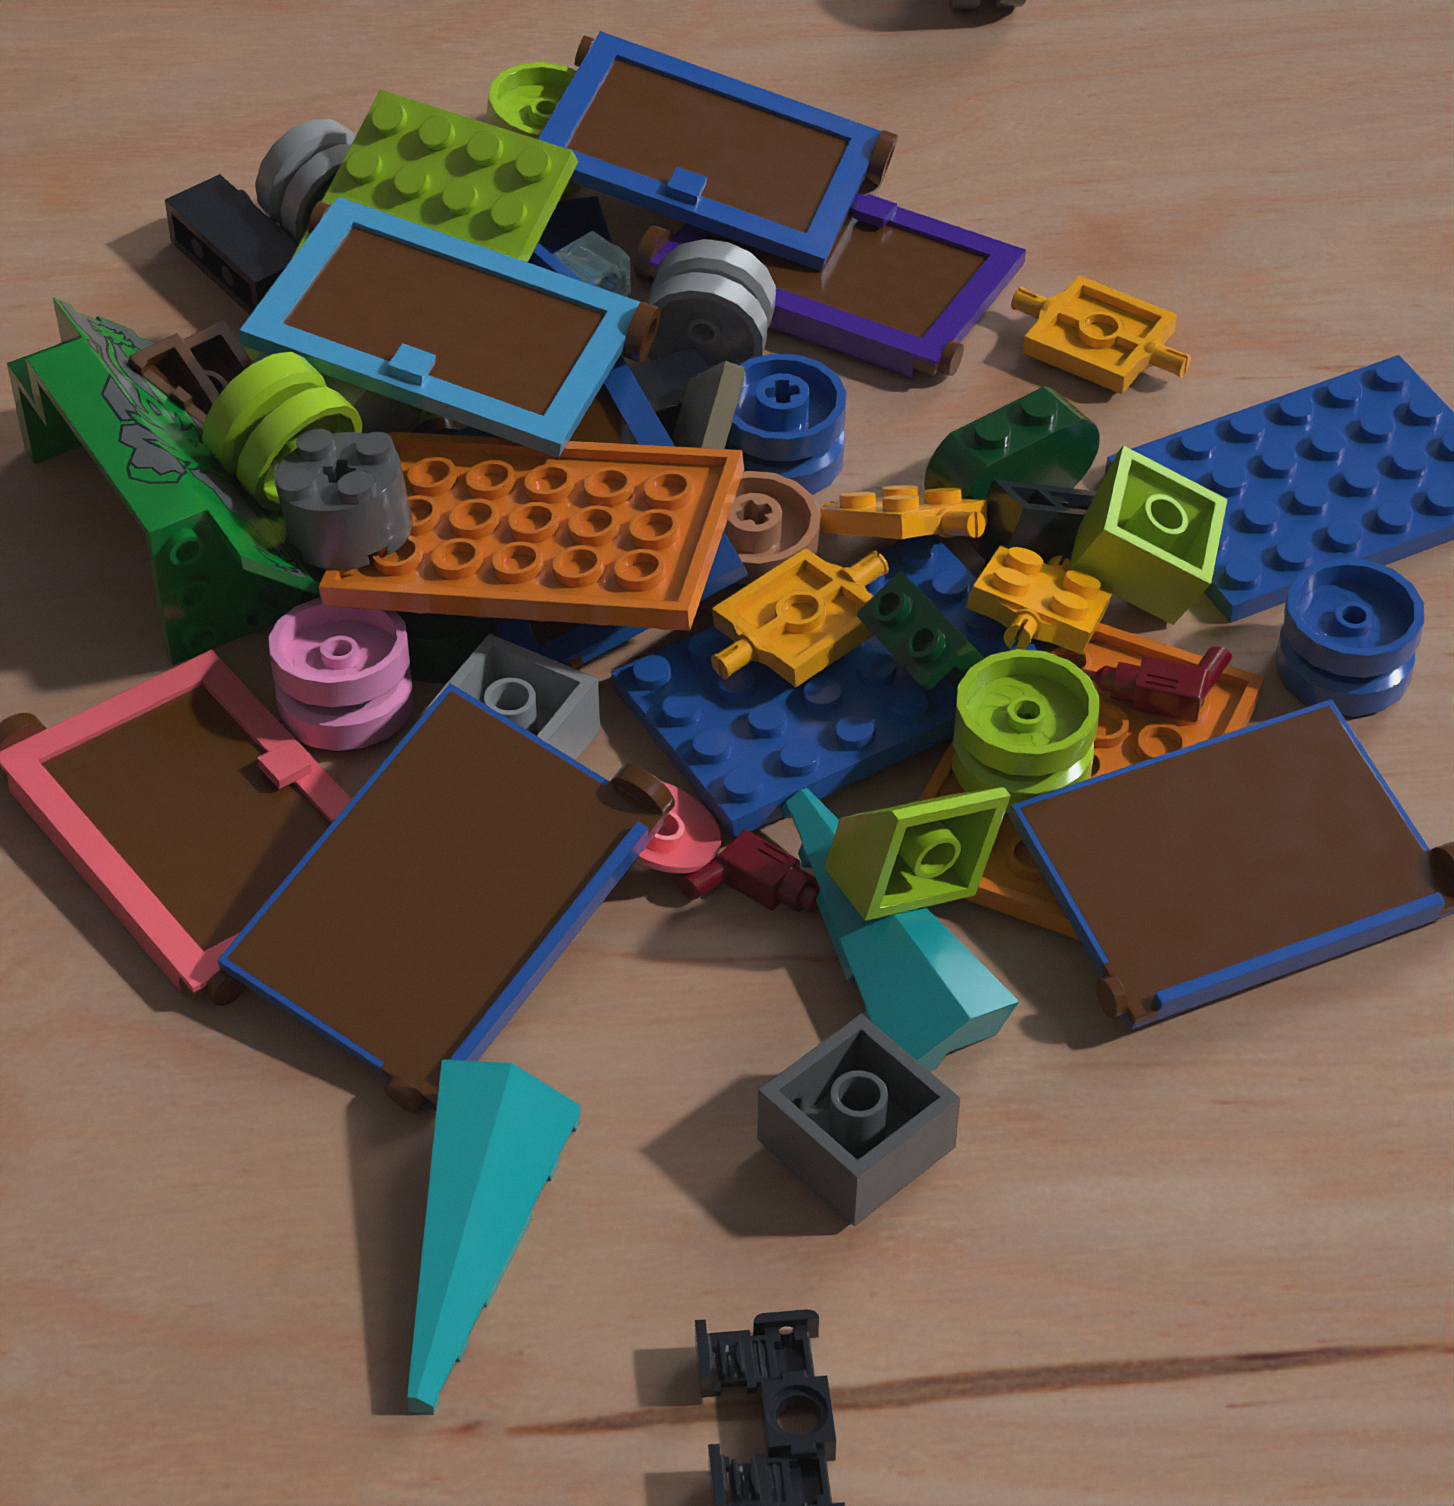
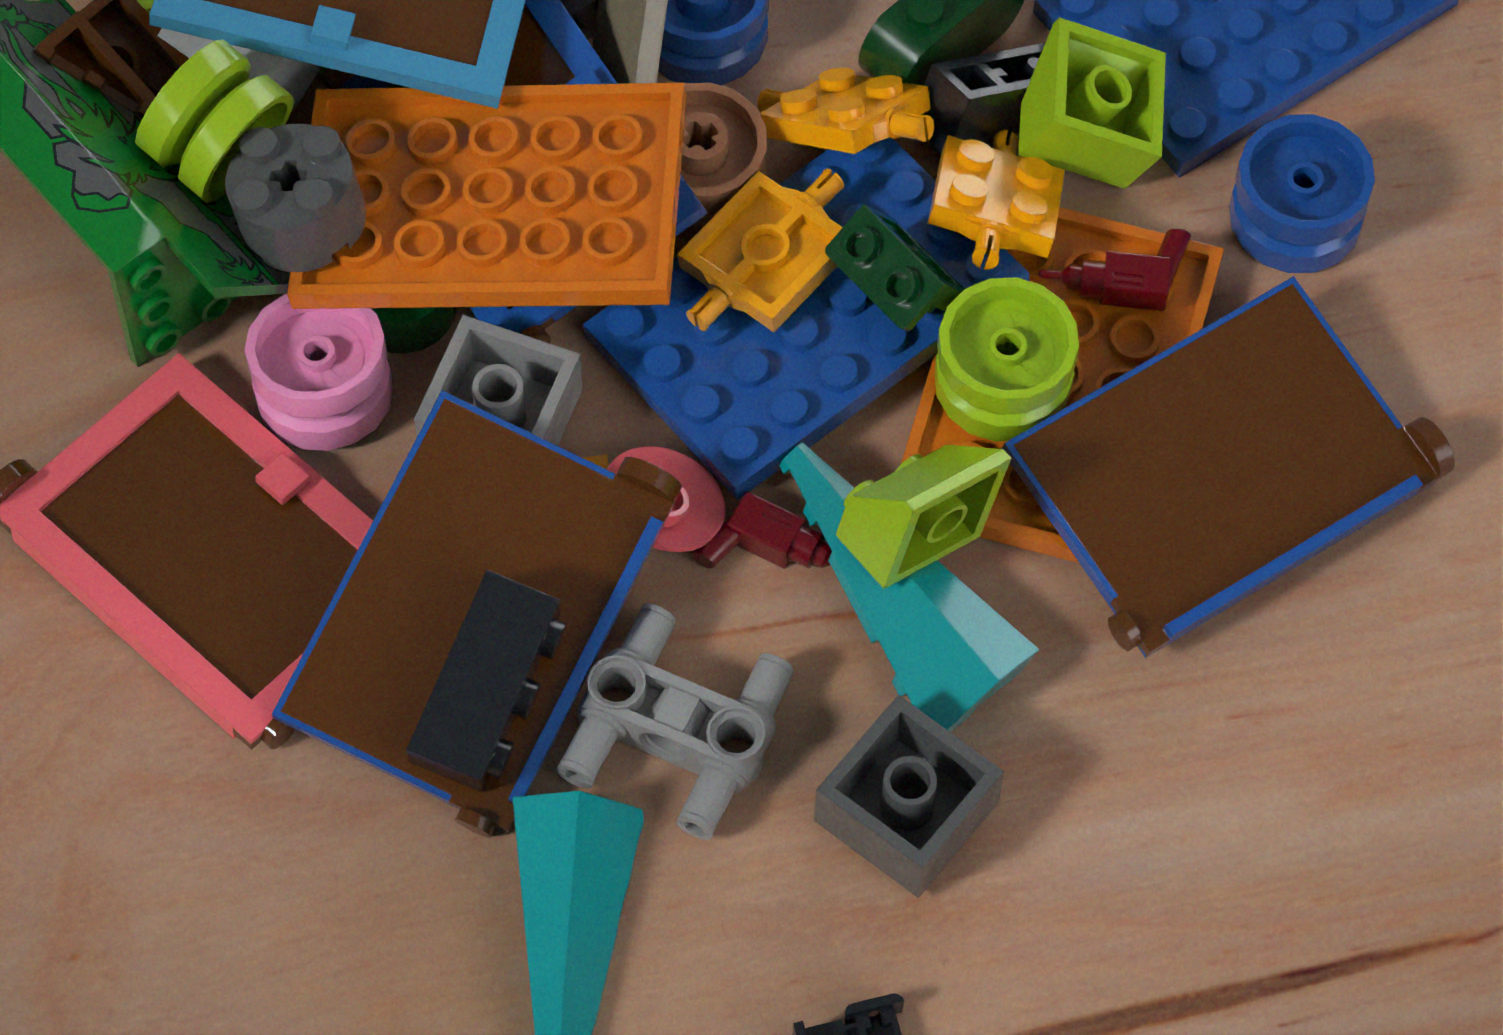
camera: 10 degrees left, 15 degrees up
(437, 950) = (487, 682): none -> black brick
(631, 1025) = (676, 721): none -> light grey piece

